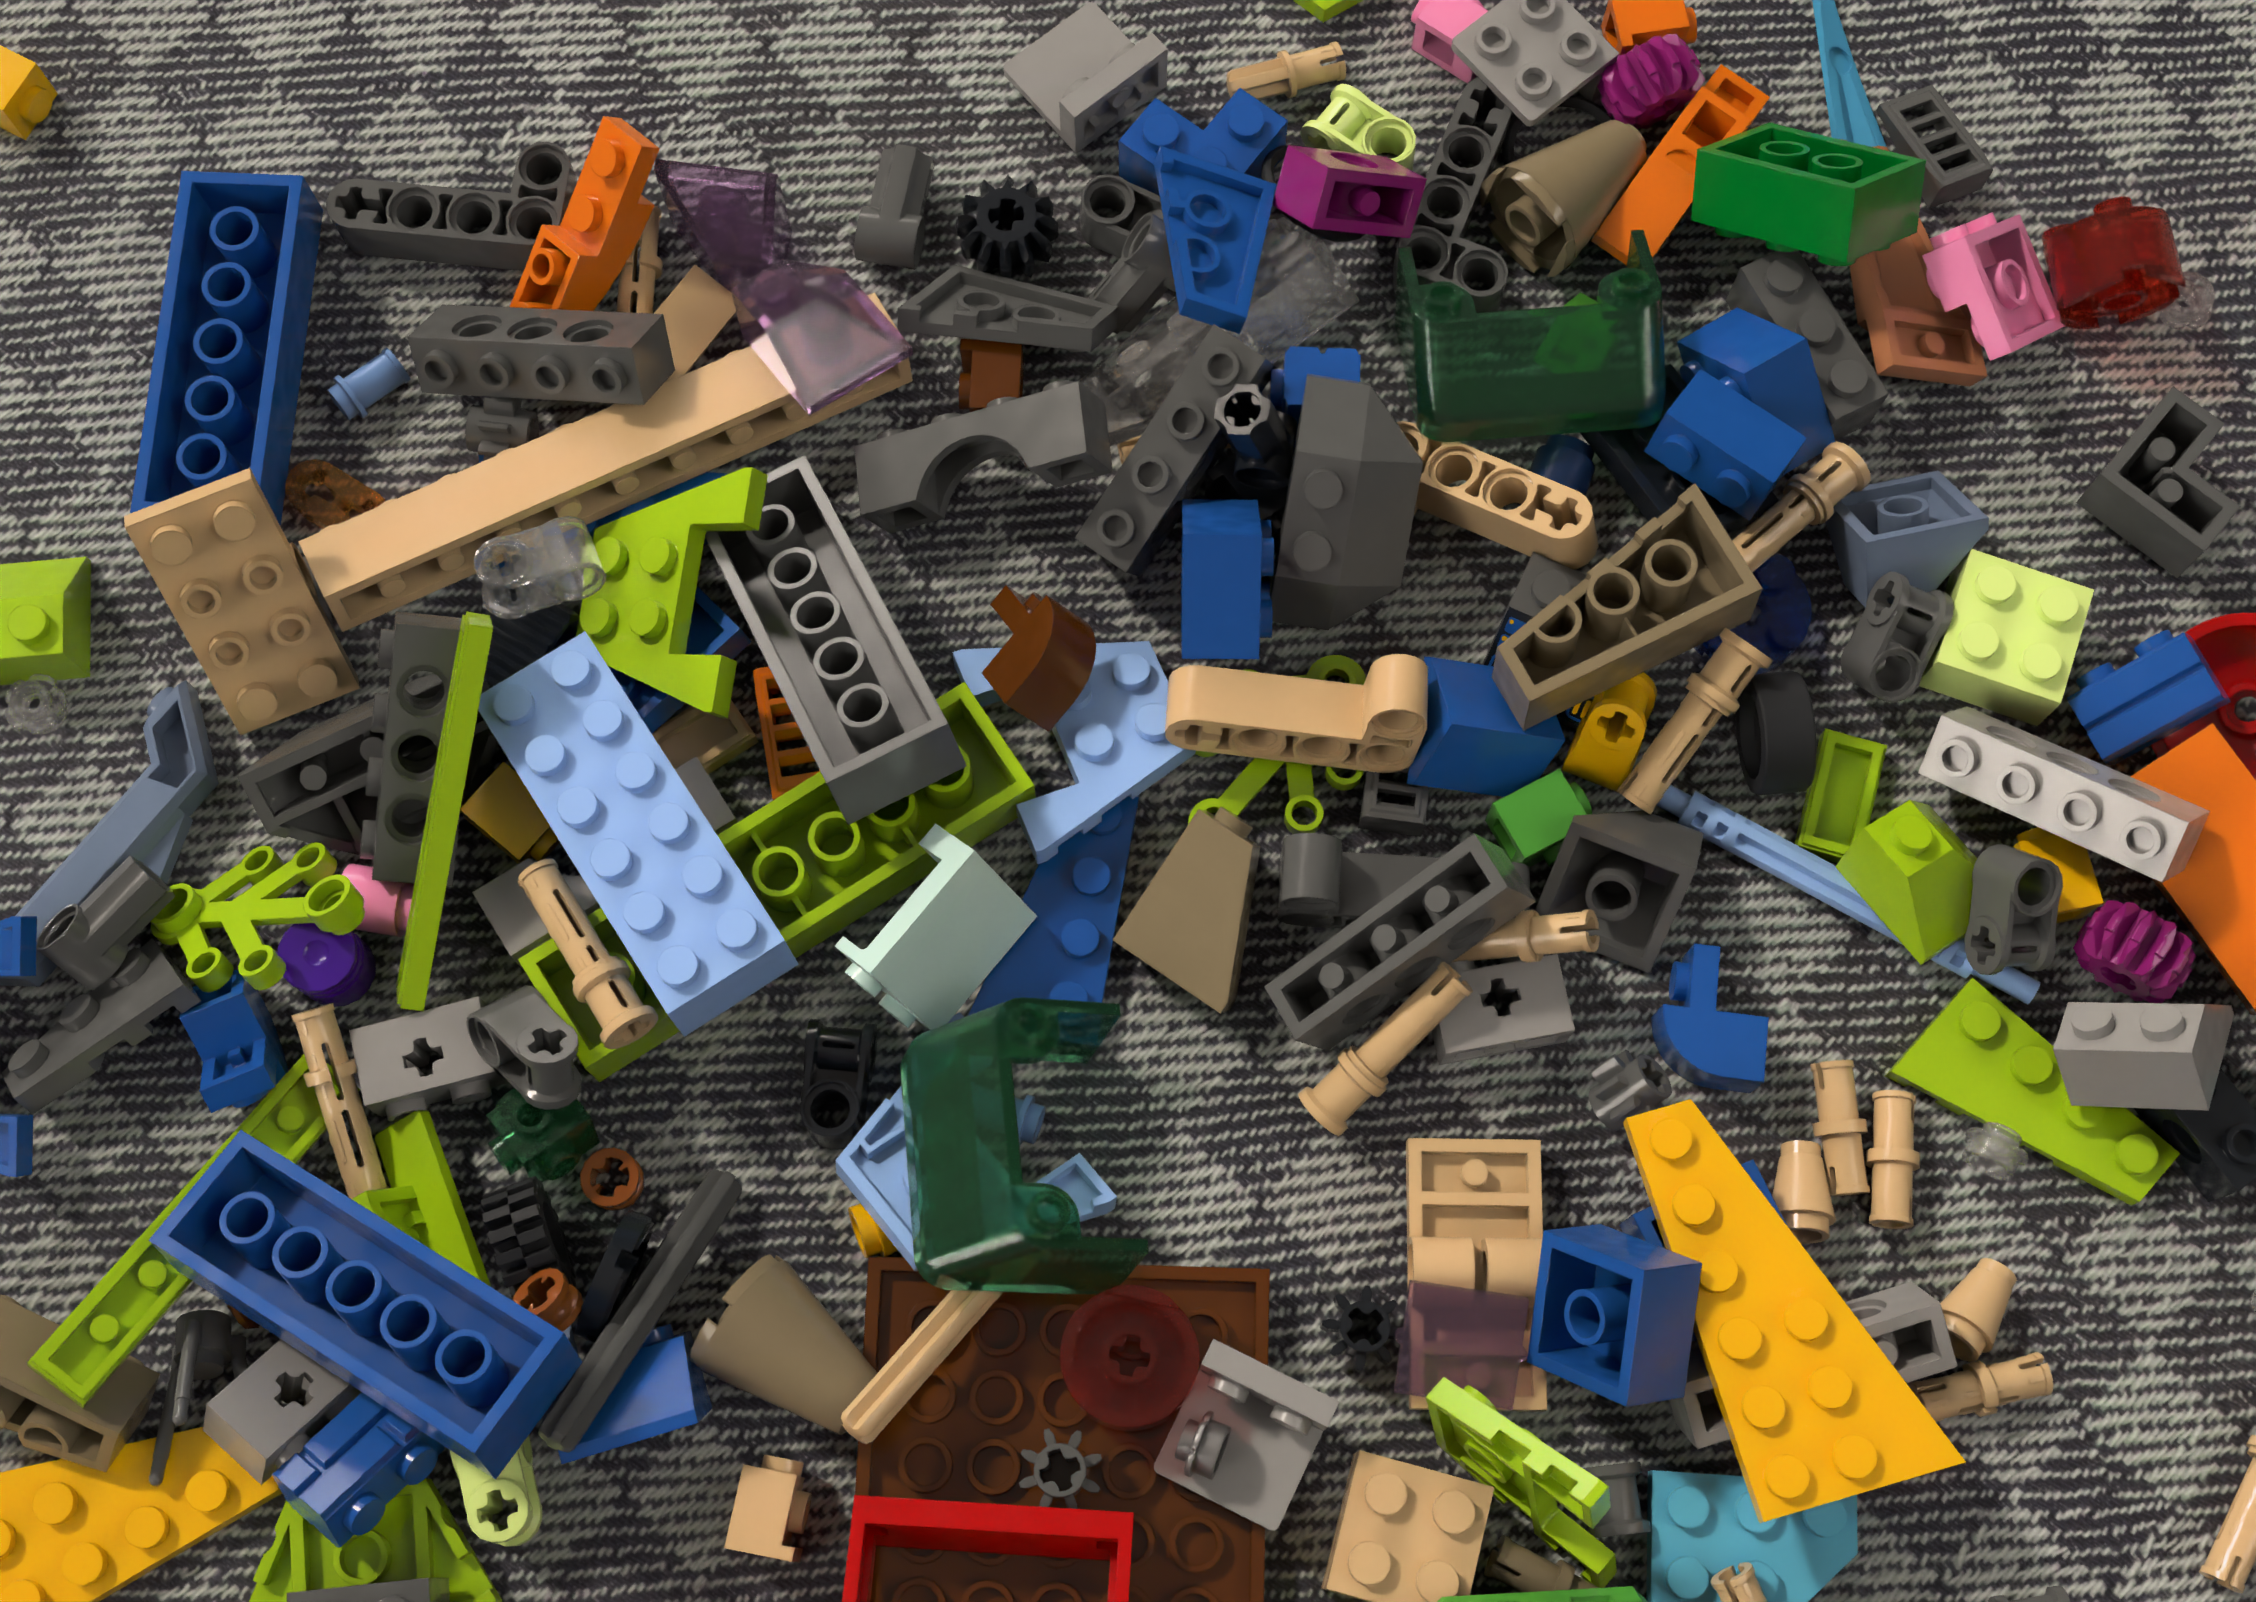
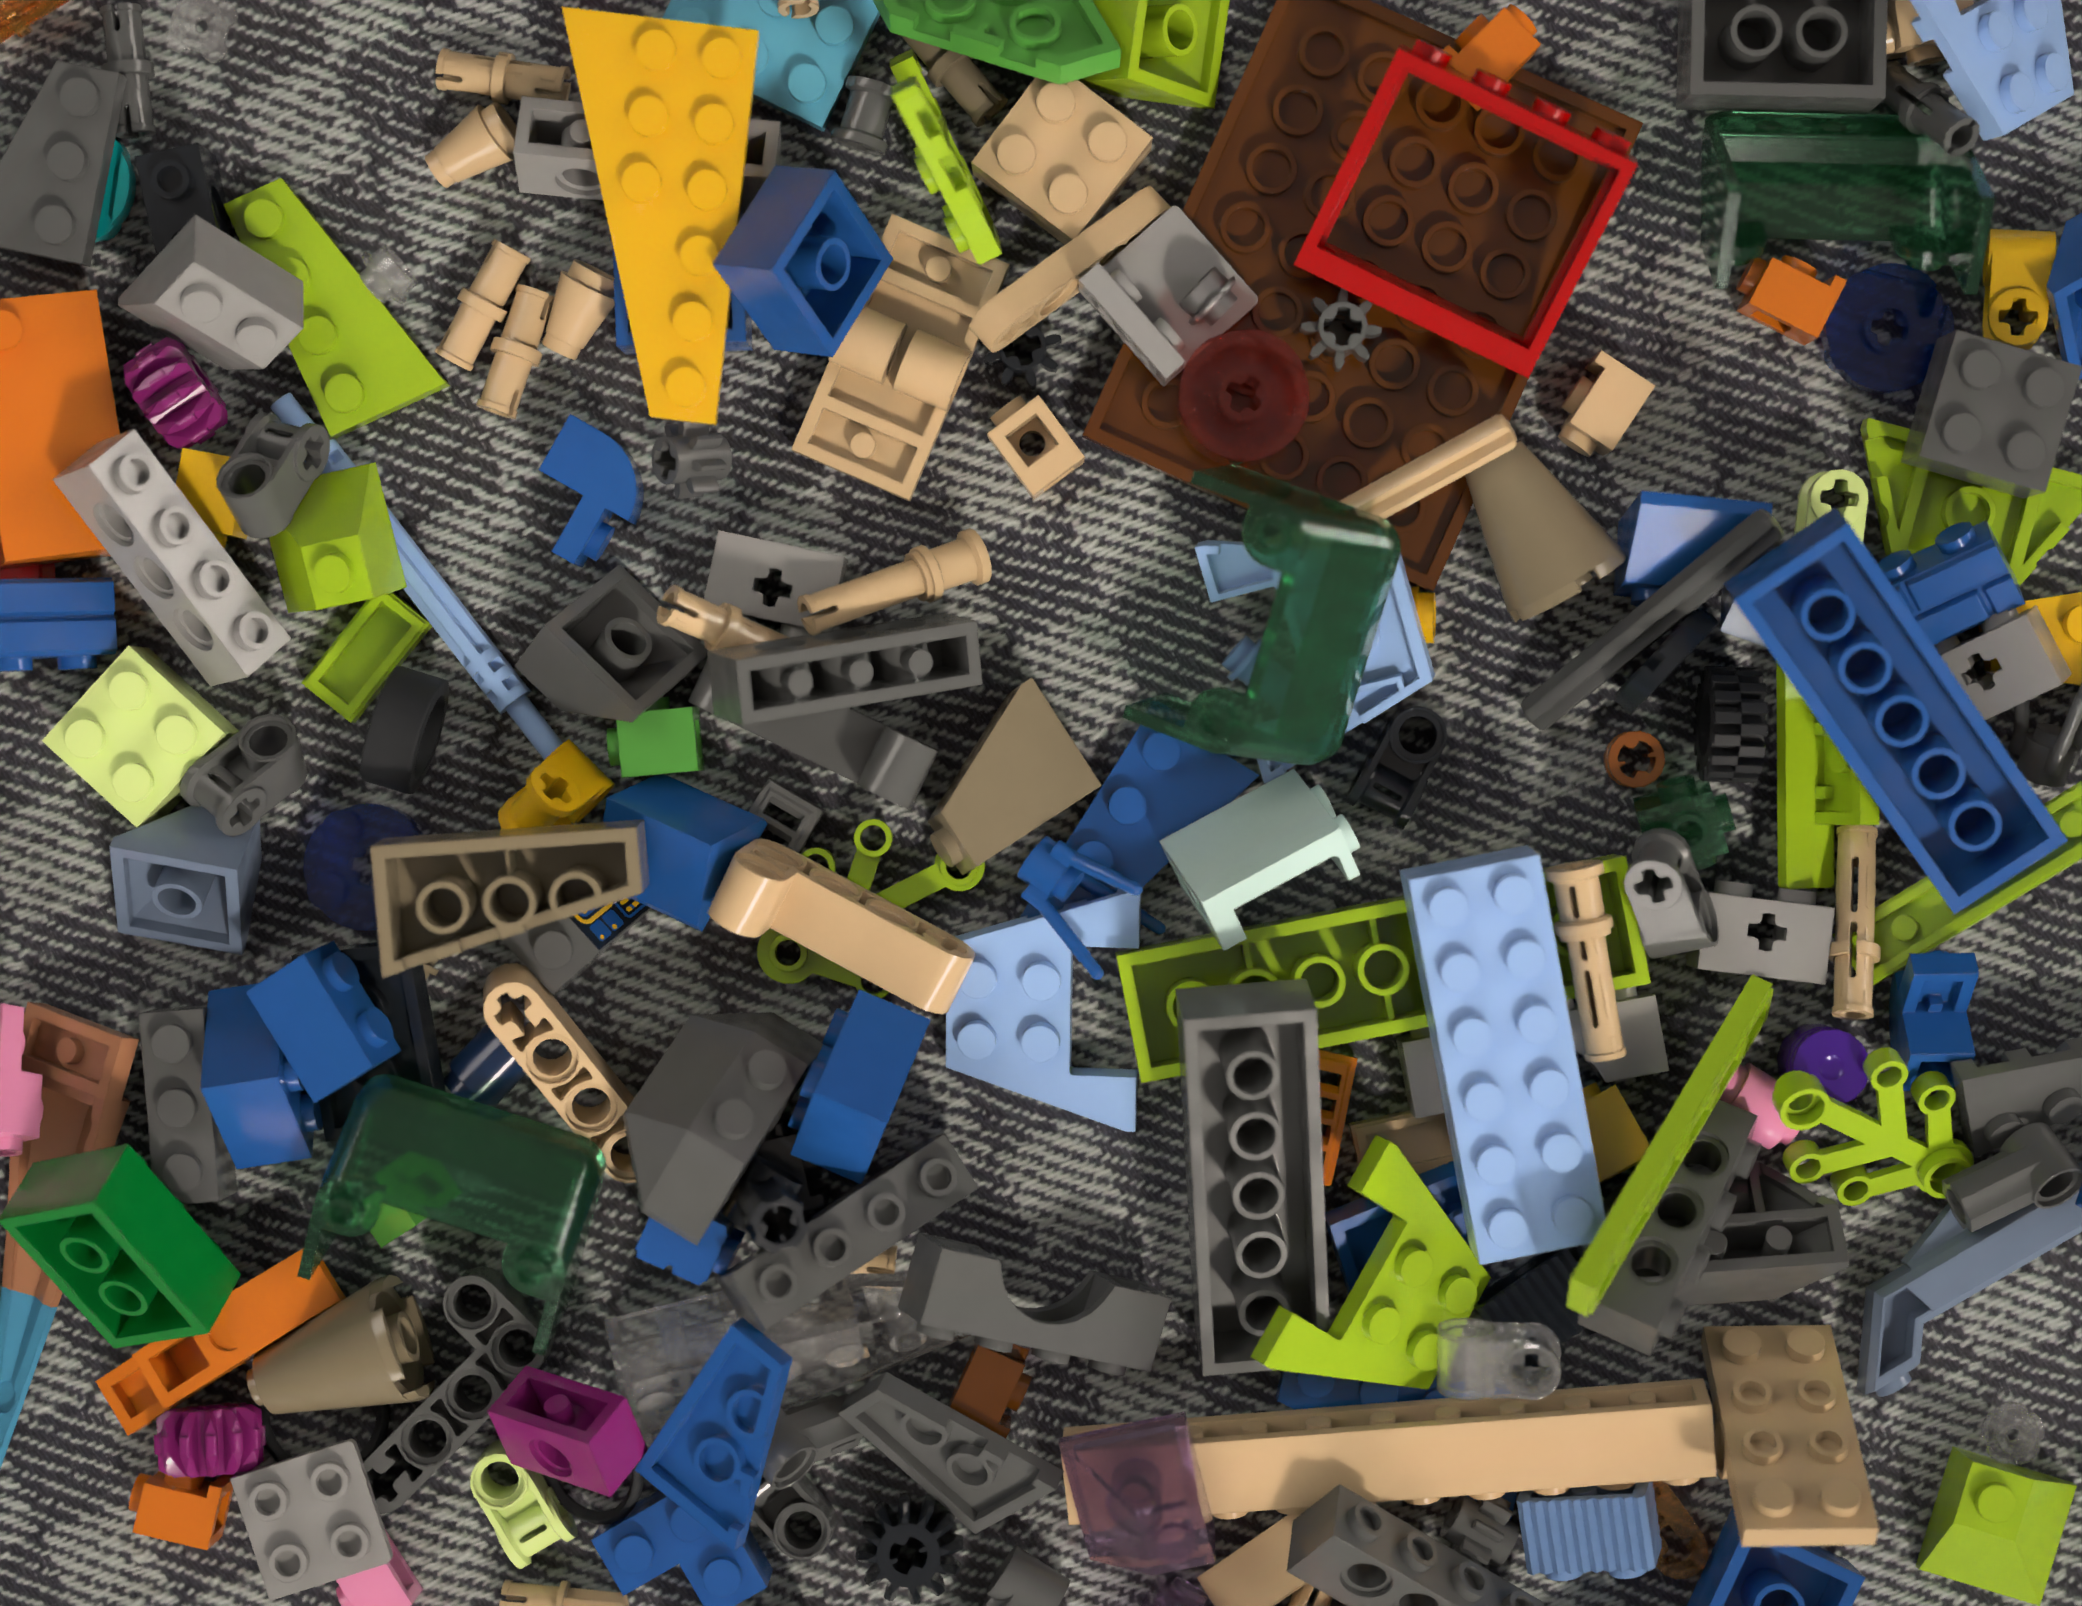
camera: 160 degrees left, 15 degrees up
(396, 459) = (1590, 1532): none -> medium blue brick
(550, 1298) = (1719, 652): dark orange bush -> none
(1045, 658) = (1055, 1076): reddish brown brick -> none
(1120, 840) = (1056, 872): none -> blue plant
(1305, 1215) = (1053, 463): none -> tan brick
(1354, 1419) = (1058, 276): none -> tan beam
(1461, 1336) = (938, 294): piece -> none
(1709, 697) = (455, 780): tan pin -> none
(1806, 501) = (266, 943): tan pin -> none

